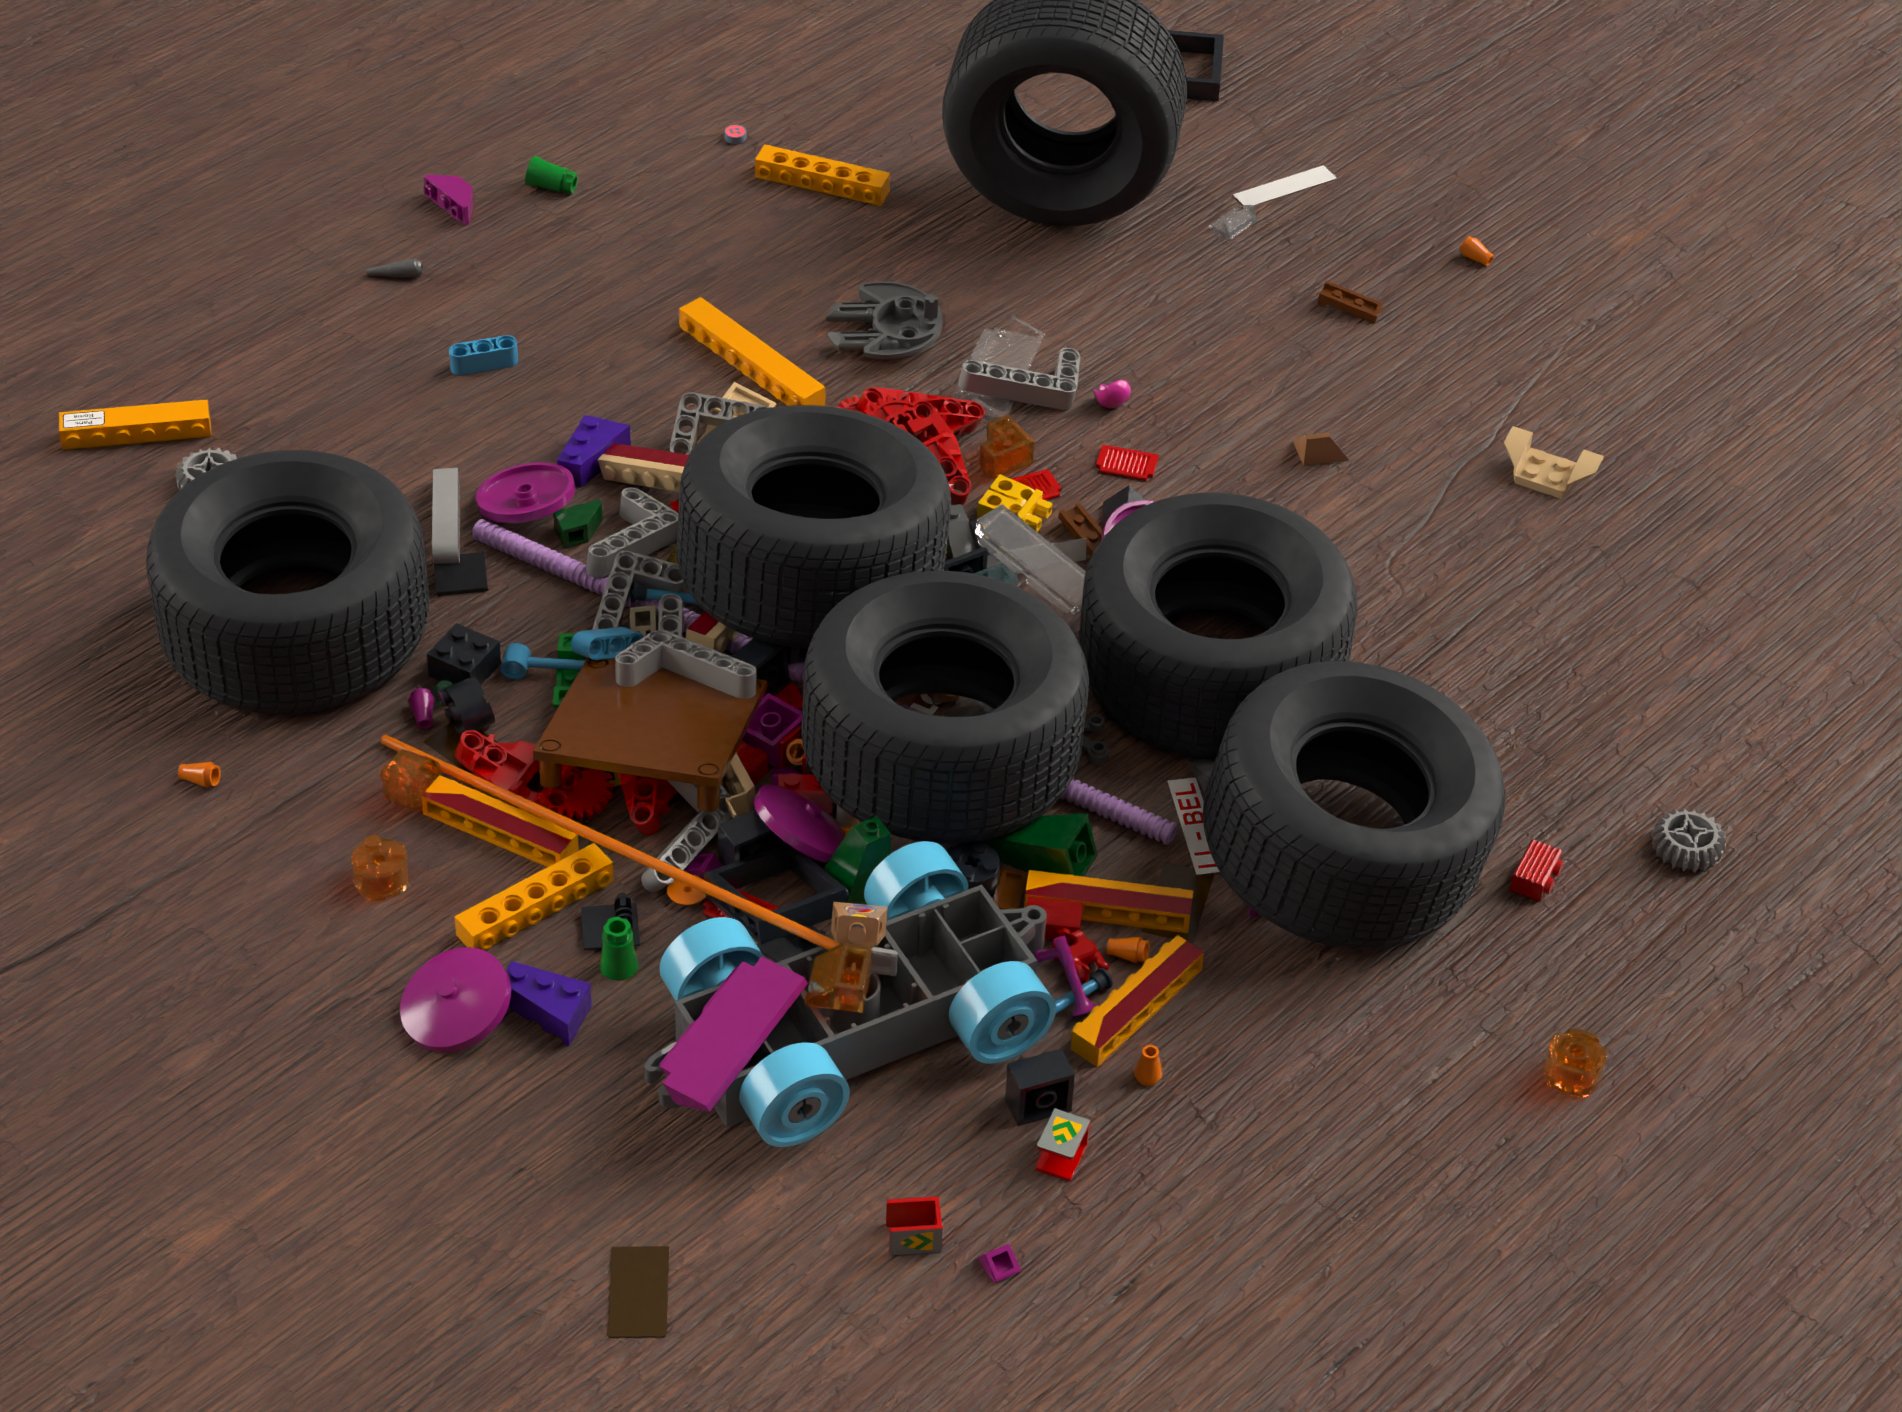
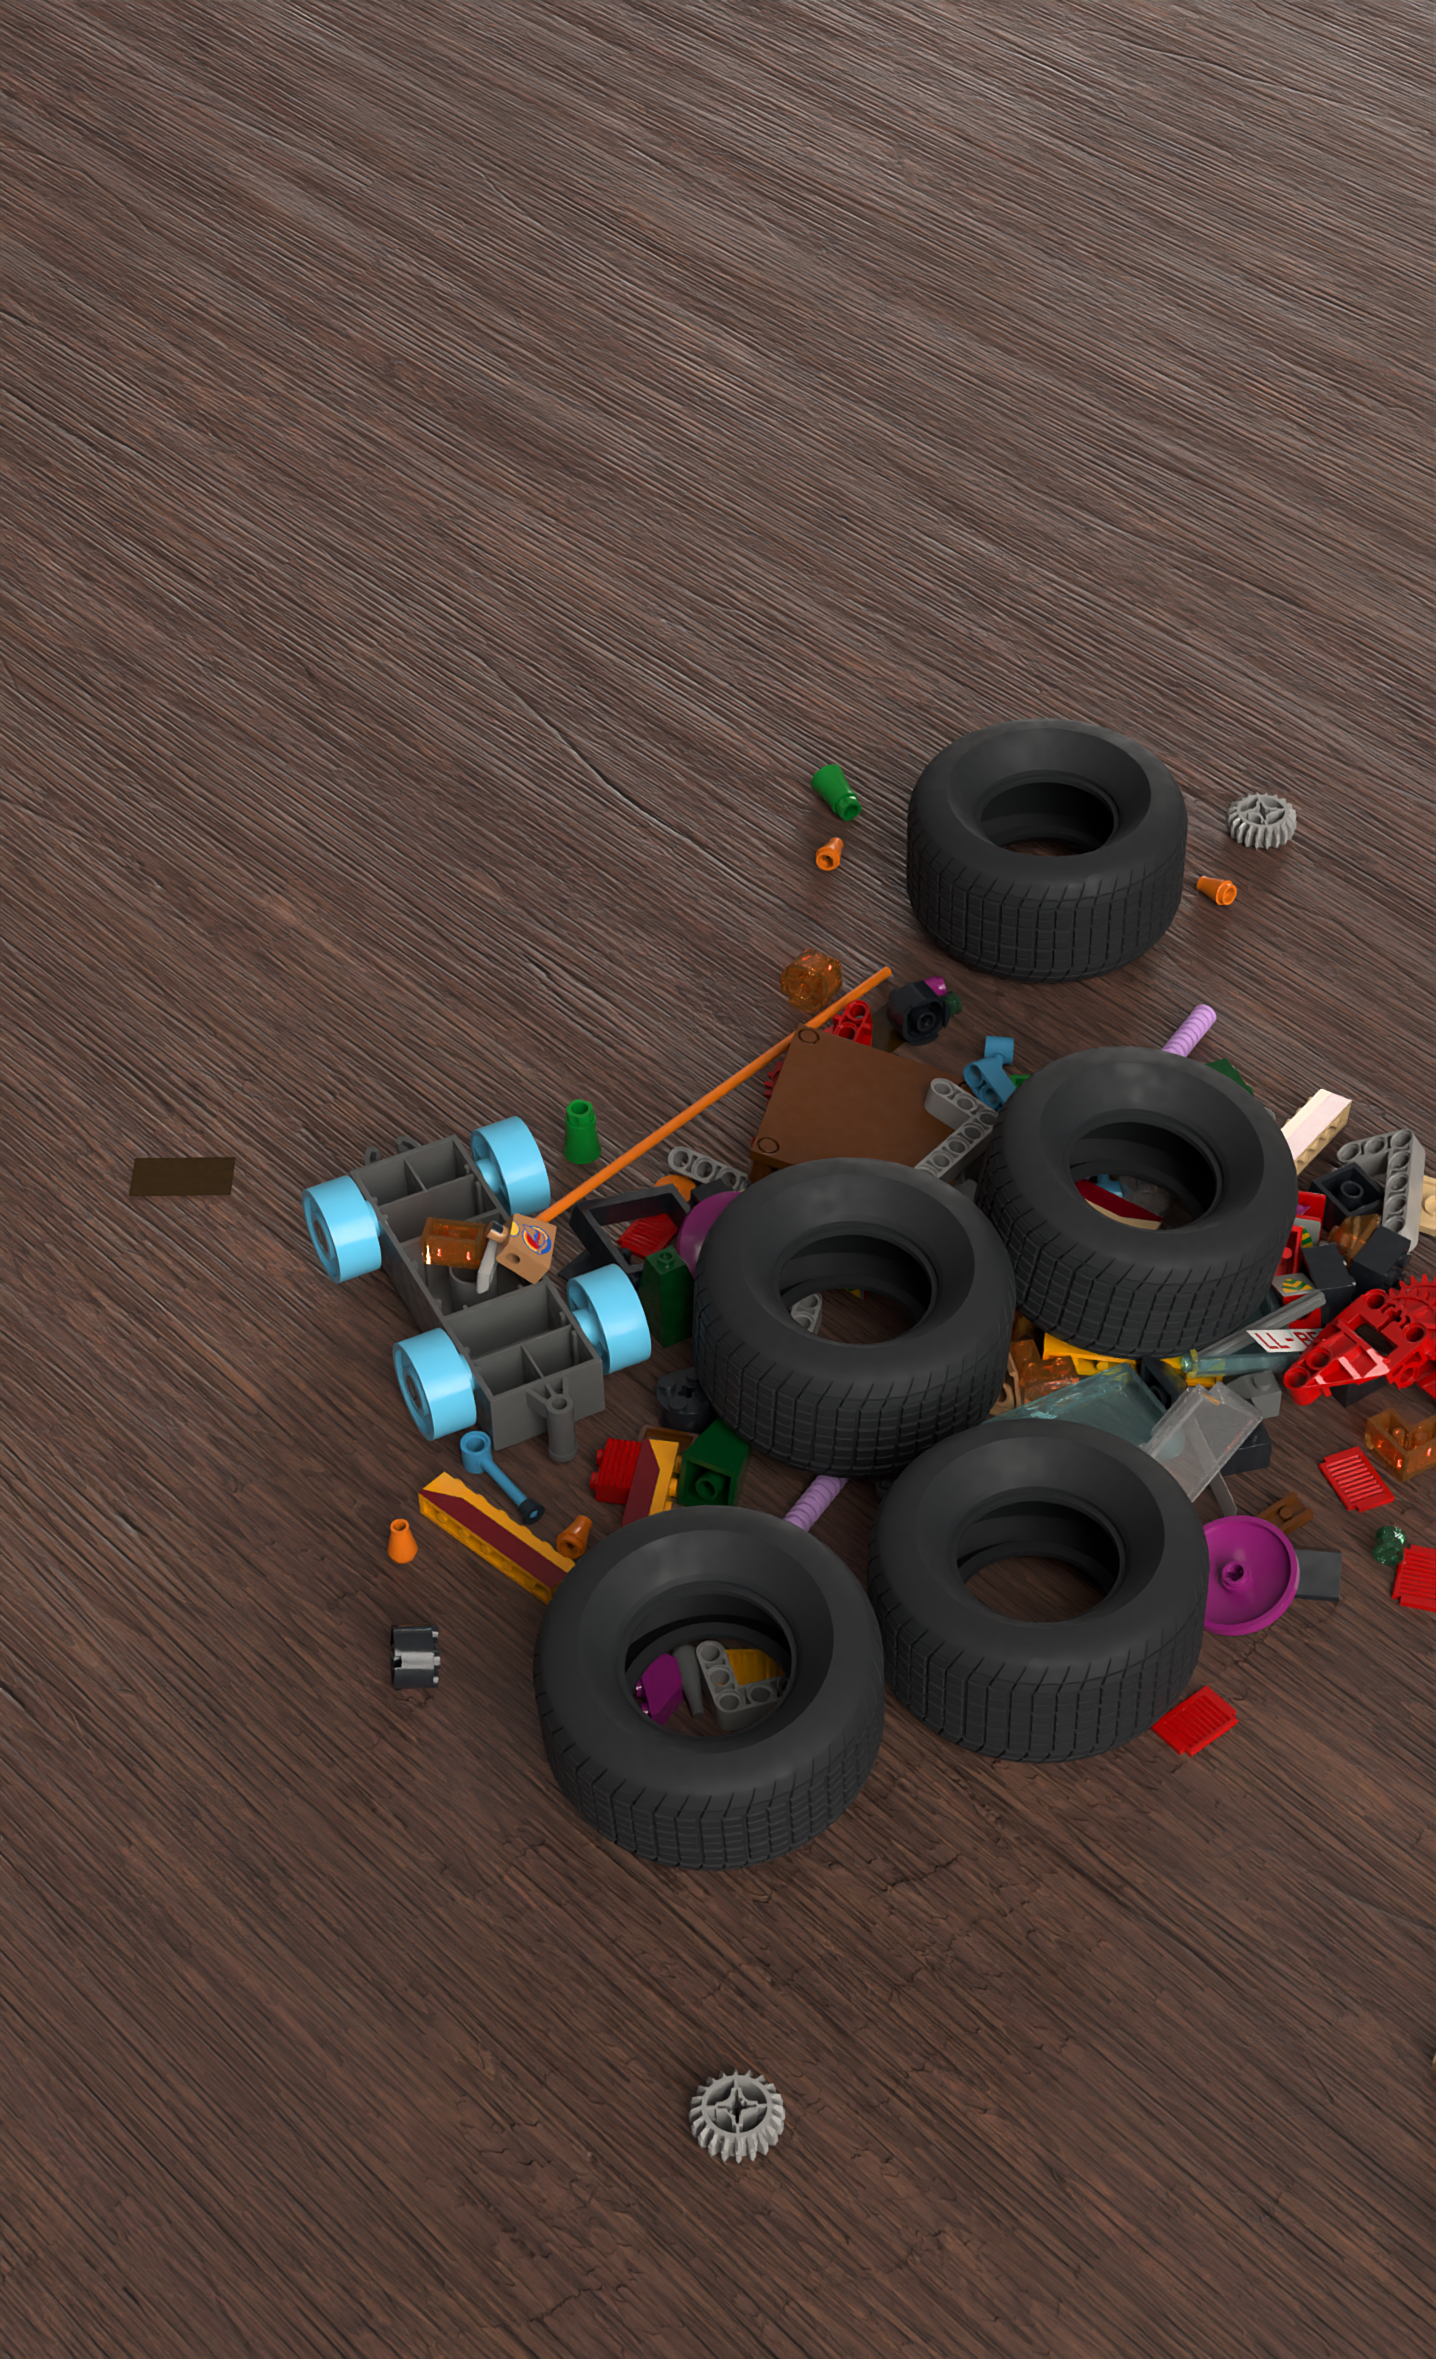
camera: 95 degrees right, 0 degrees up
(106, 763) = (836, 791): none -> green plant
(134, 424) = (1333, 765): light orange brick -> none
(380, 868) = (699, 972): clear orange brick -> none
(446, 516) = (1205, 977): light grey beam -> none
(455, 1000) = (522, 1028): magenta dish -> none
(462, 577) = (1139, 1005): black slope -> none
(463, 655) = (997, 1009): black brick -> none
(498, 822) = (776, 1025): light orange brick -> none
(525, 492) = (1259, 1038): magenta dish -> none
(534, 898) = (658, 1078): light orange brick -> none
(549, 999) = (523, 1090): dark purple wedge -> none
(588, 443) = (1357, 1082): dark purple wedge -> none
(596, 917) = (622, 1134): black hinge -> none
(729, 1032) = (405, 1166): magenta slope -> none
(914, 1238) = (227, 1361): piece -> none
(1000, 1263) = (172, 1424): magenta slope -> none
(1017, 499) = (1304, 1454): yellow hips -> none
(1039, 1086) = (371, 1442): black brick -> none
(1062, 951) = (494, 1492): magenta piece -> none
(1063, 1144) = (303, 1464): piece -> none
(1084, 954) = (567, 1491): red animal -> none
(1104, 470) = (1389, 1545): none -> clear green wheel
(1287, 1044) = (414, 1656): none -> black brick
(1536, 870) = (685, 1937): red brick -> none
(1575, 1062) = (366, 1932): clear orange brick -> none

